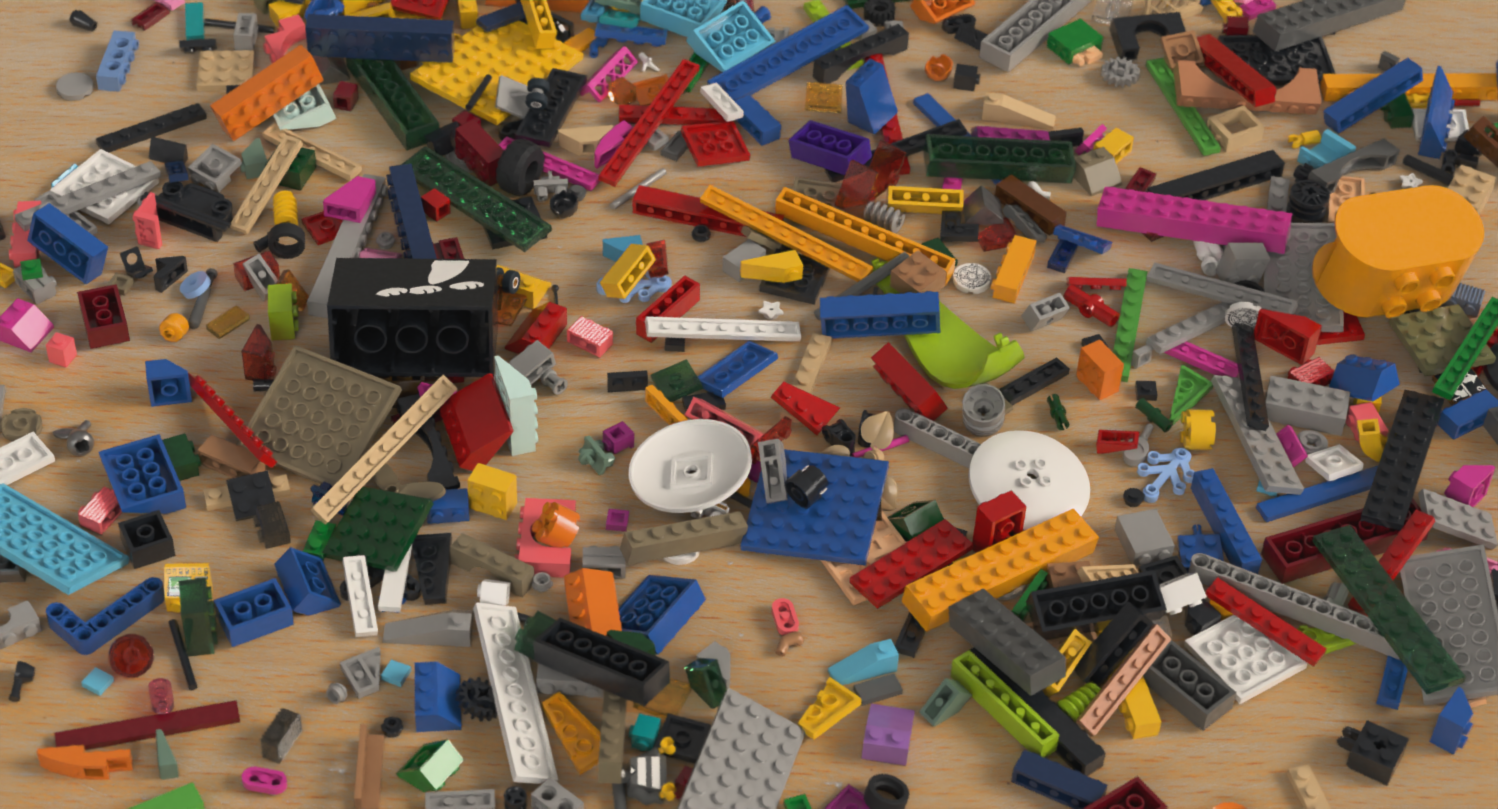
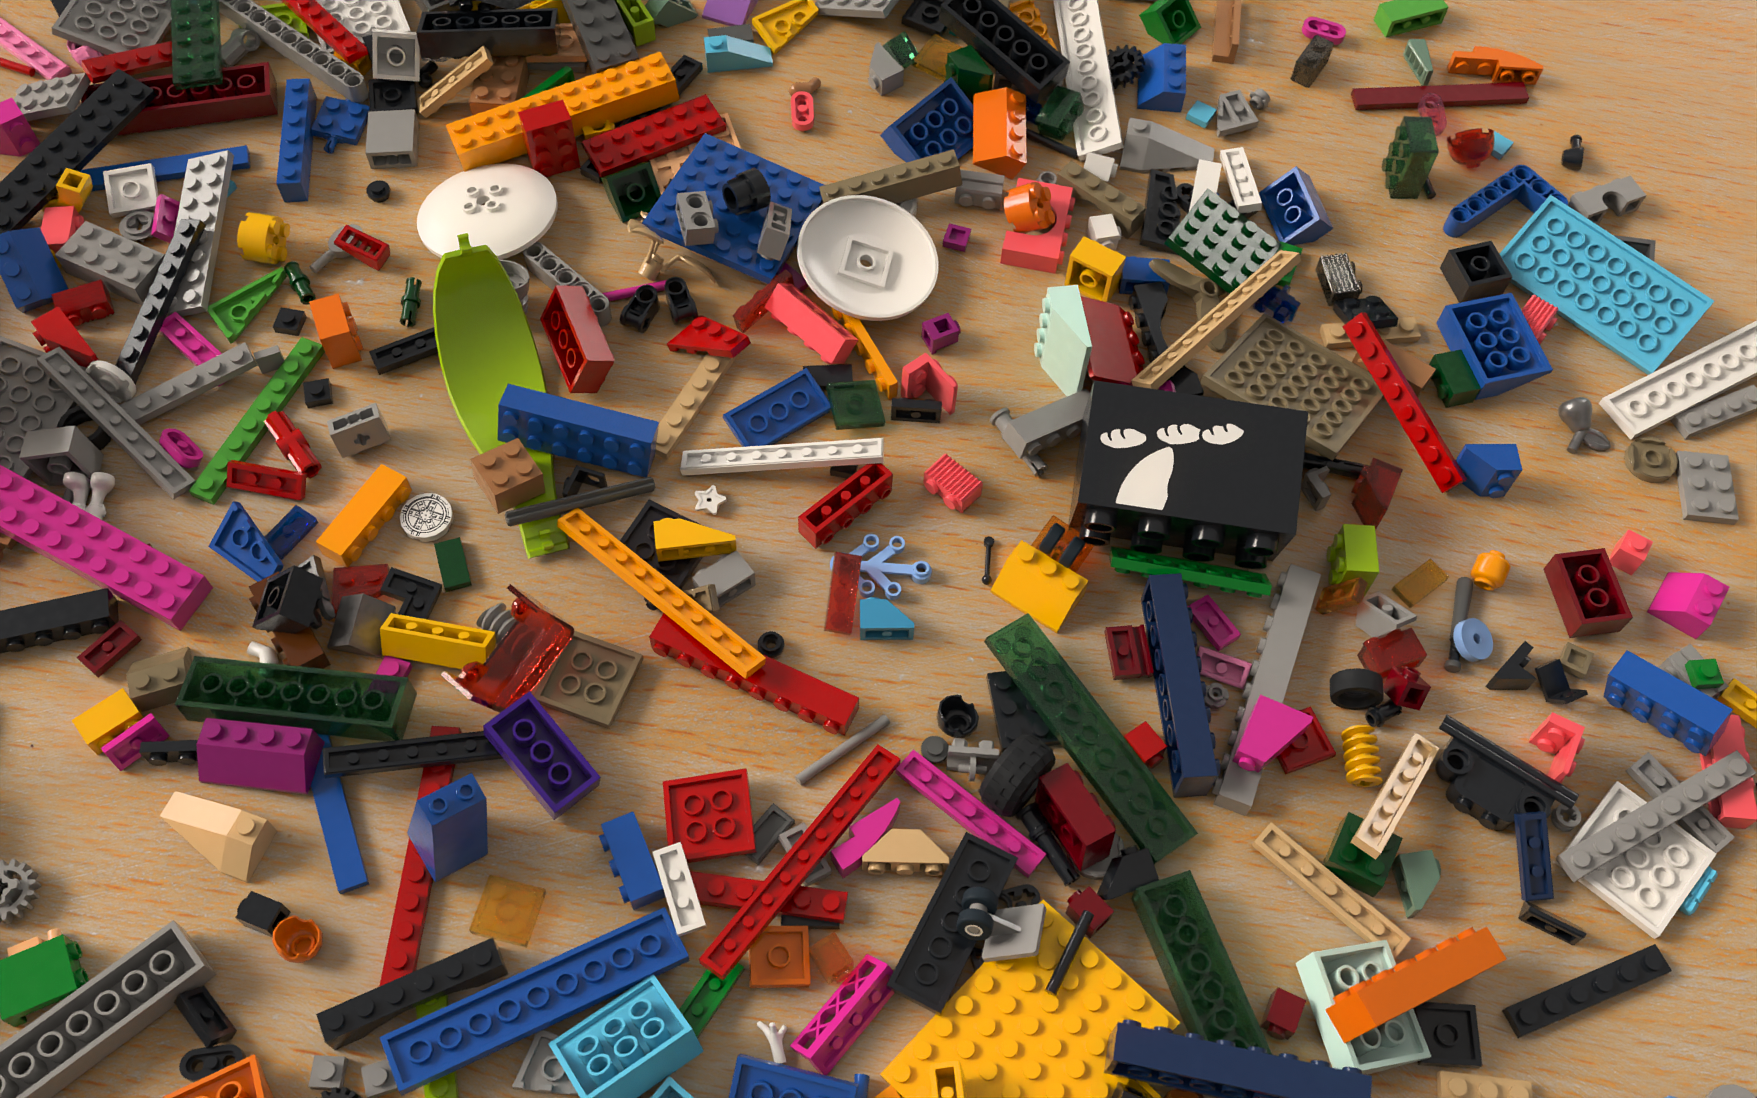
camera: 170 degrees left, 15 degrees up
(176, 572) = (1421, 213): yellow slope -> none
(214, 168) = (1477, 859): light grey plate -> none
(250, 244) = (1406, 687): none -> dark red brick
(253, 612) = (1351, 176): blue brick -> none
(392, 731) = (1205, 64): black plate -> none
(487, 533) = (1104, 231): none -> white brick
(541, 324) = (1019, 502): red slope -> none
(593, 454) = (979, 311): sand green hips -> none
(621, 394) = (928, 375): none -> coral bracket
(627, 271) = (890, 559): yellow brick -> none
(842, 459) = (696, 218): none -> light grey brick
(853, 230) = (553, 580): light orange brick -> none
(1031, 196) = (289, 601): none -> black slope
(1170, 293) = (181, 448): none -> dark pink plate
(1178, 457) = (302, 228): light blue plant -> none

